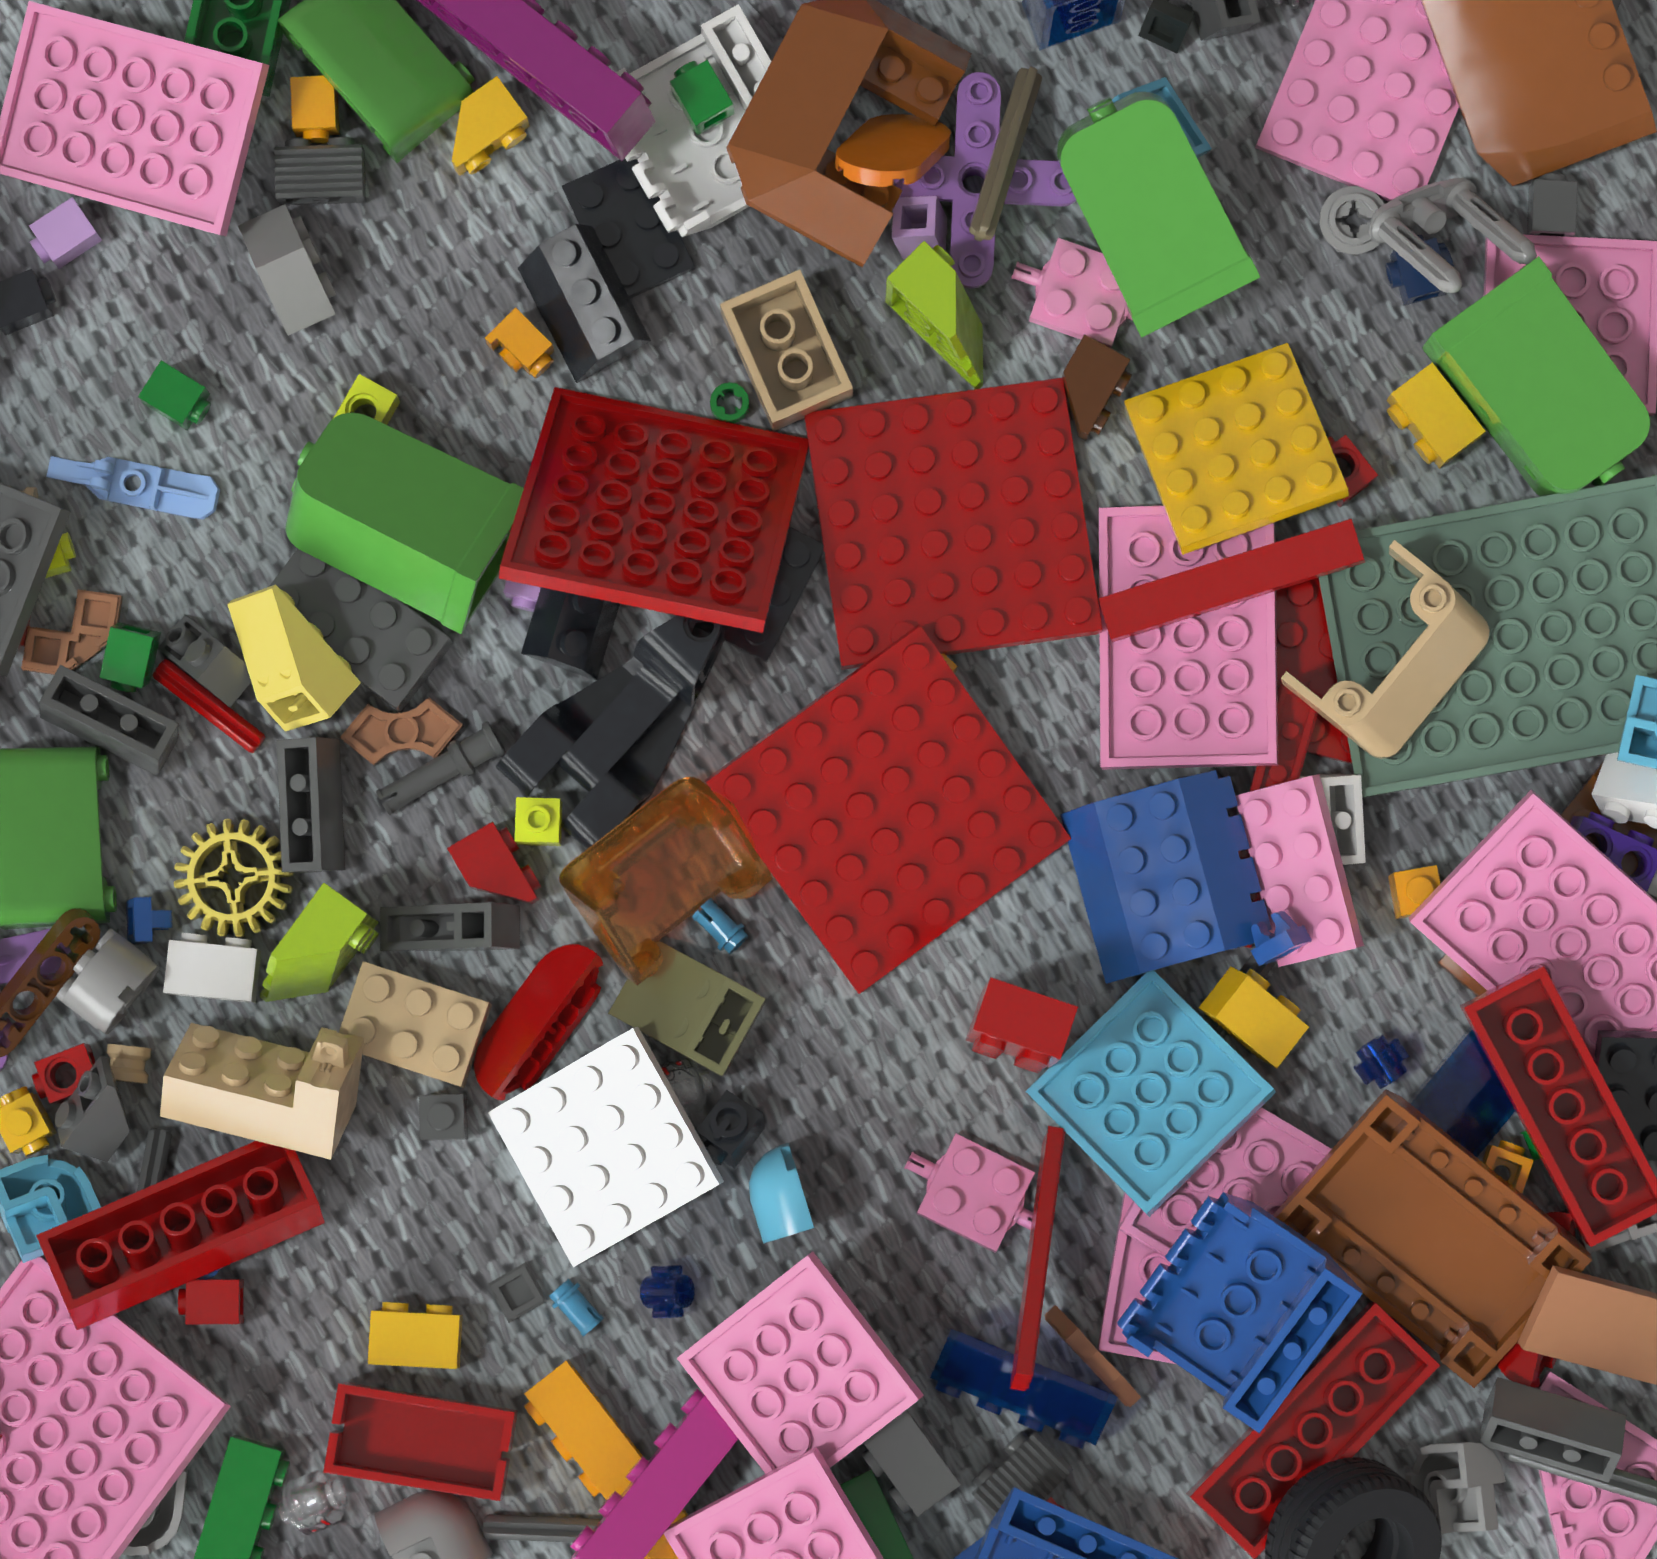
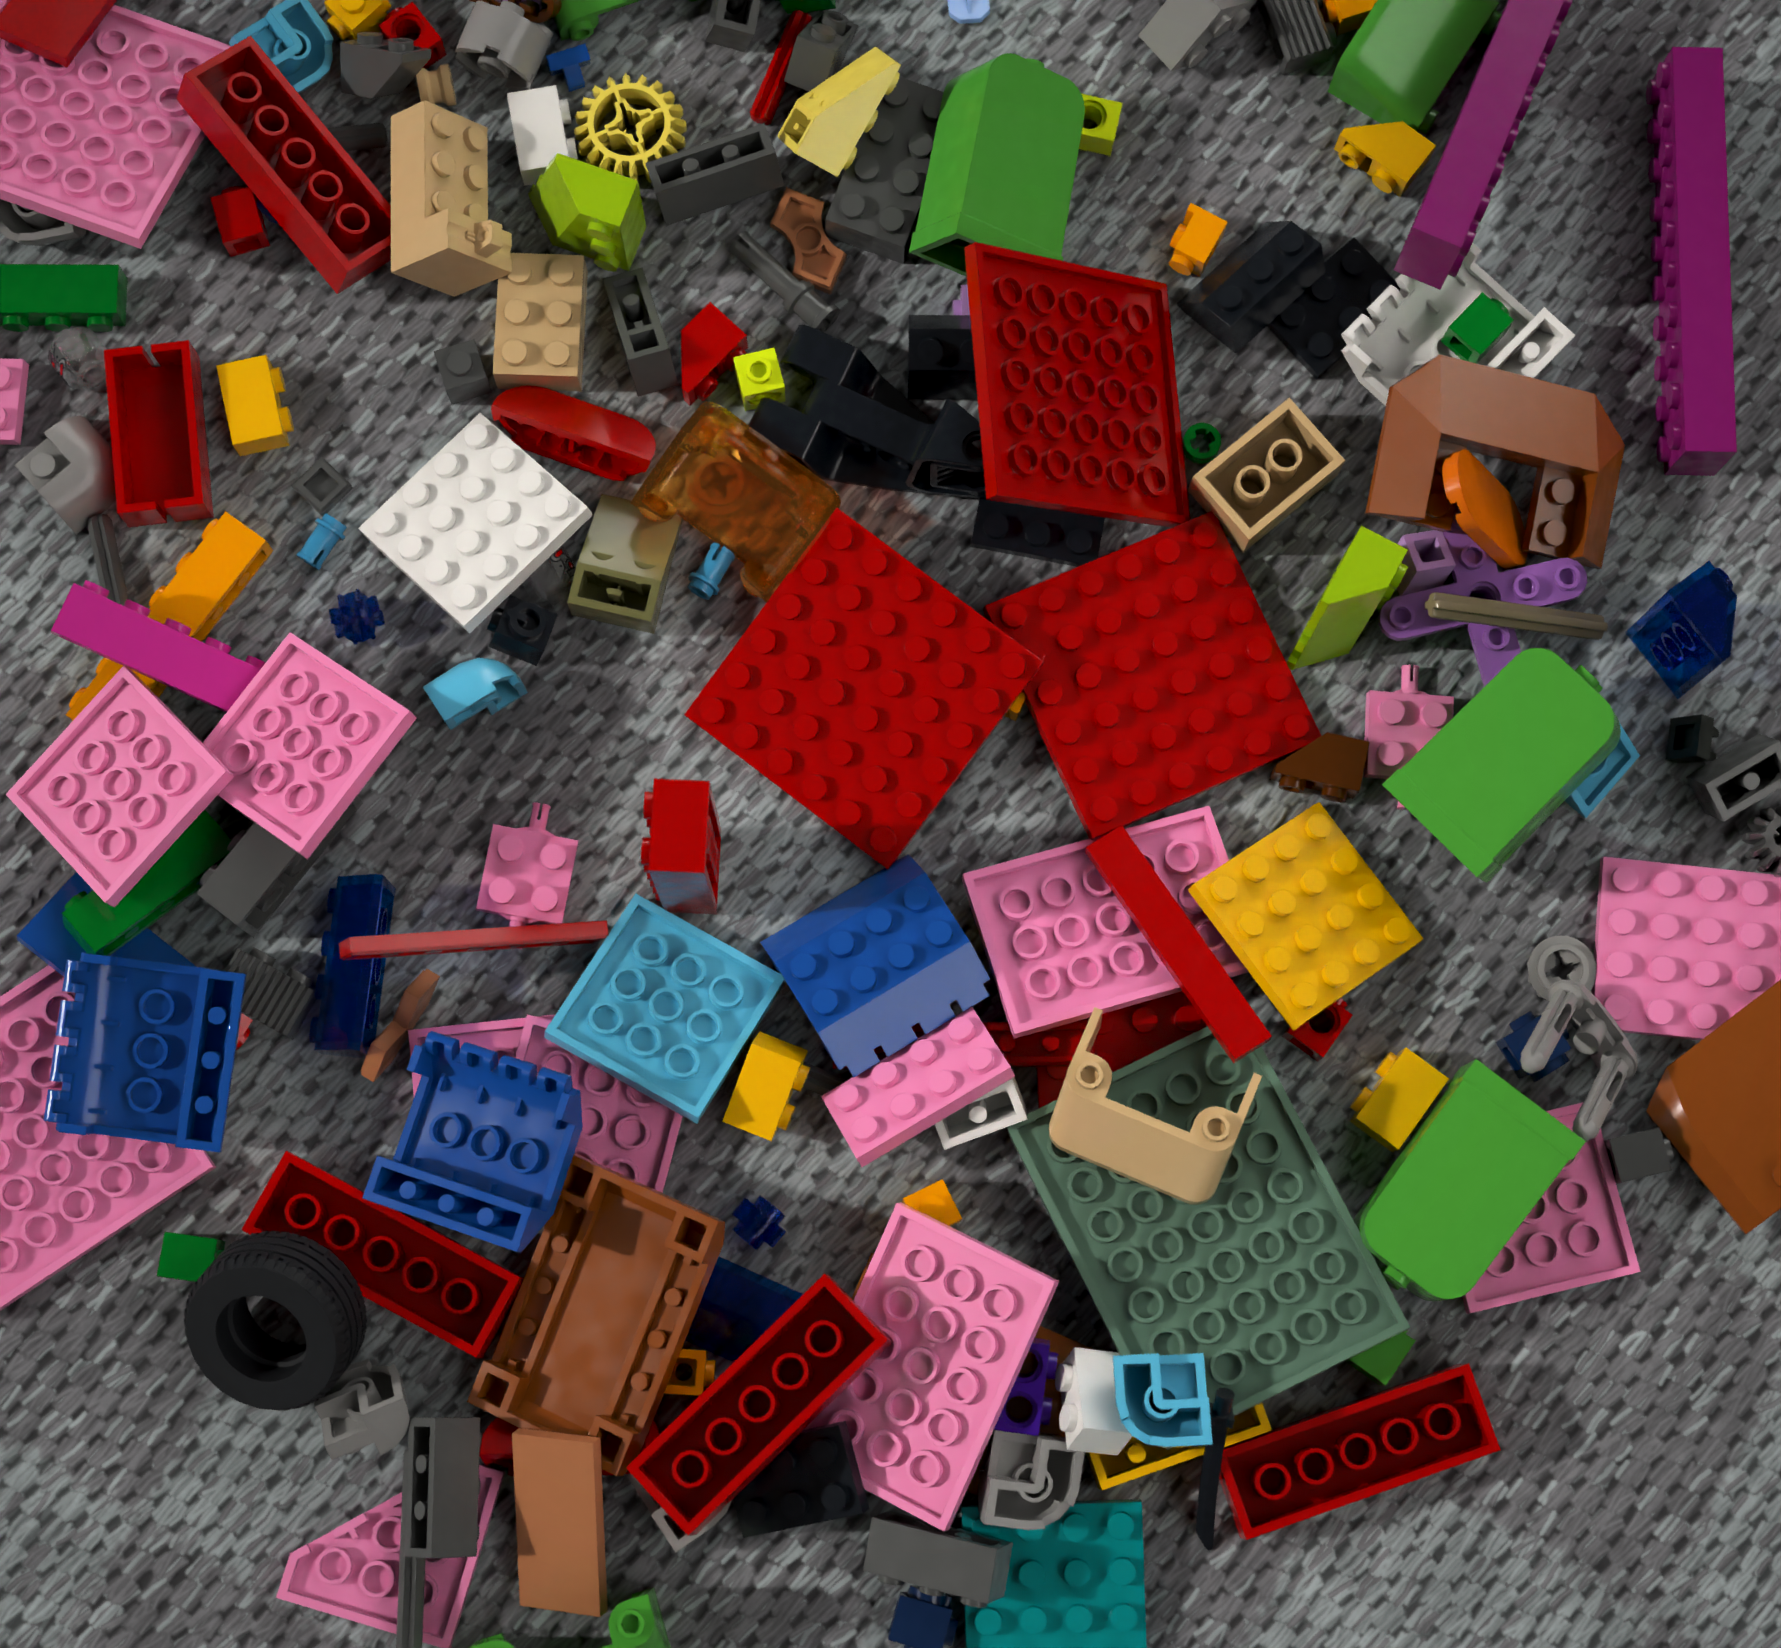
camera: 70 degrees right, 5 degrees down
(1285, 940) = (842, 1086): blue tile -> none

